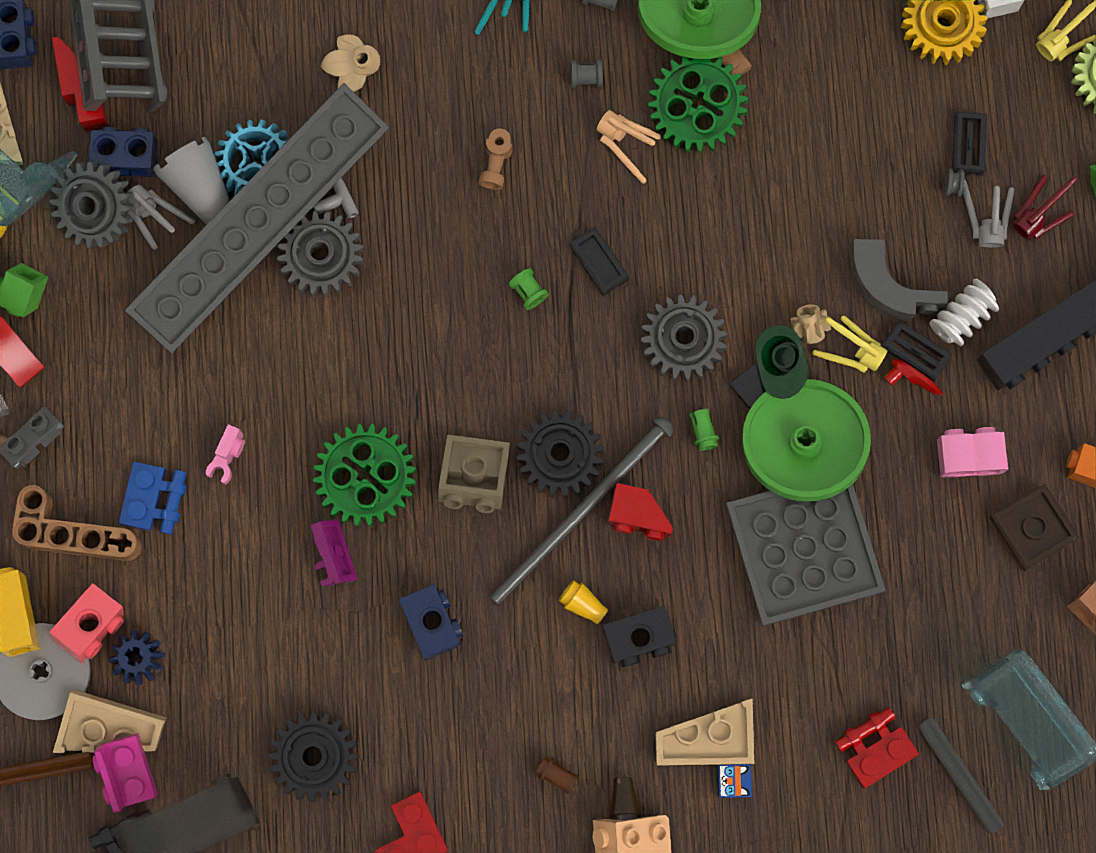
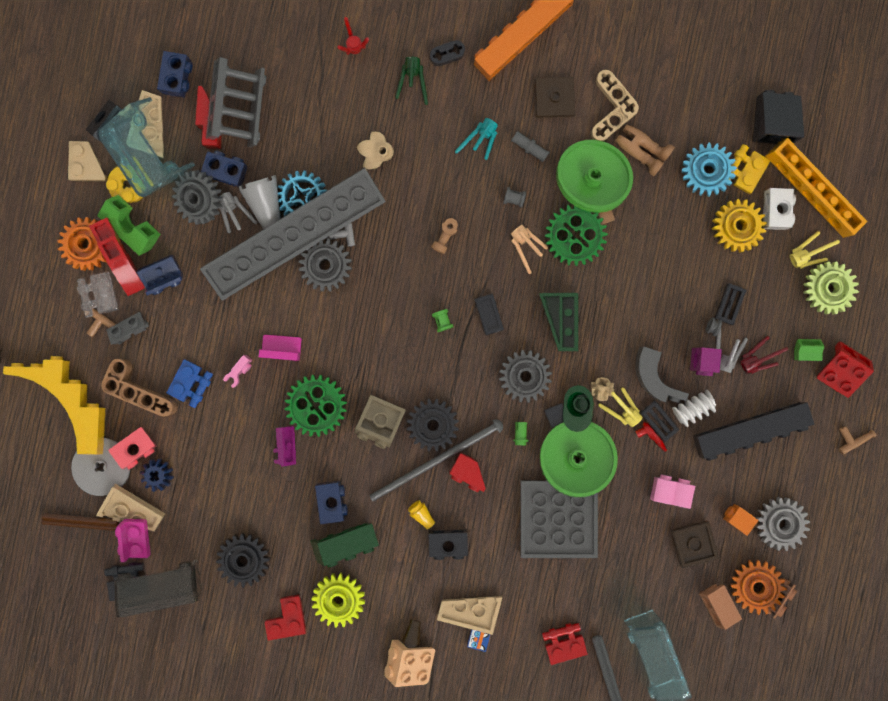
camera: 20 degrees right, 10 degrees up
(63, 340) = (160, 275): none -> dark blue bracket
(284, 402) = (281, 347): none -> dark pink panel
(465, 778) = (329, 608): none -> neon yellow gear
(471, 683) = (345, 544): none -> dark green wedge
(556, 774) = (375, 604): reddish brown pin -> none
(716, 231) = (563, 317): none -> dark green wedge
(956, 233) = (705, 361): none -> magenta brick

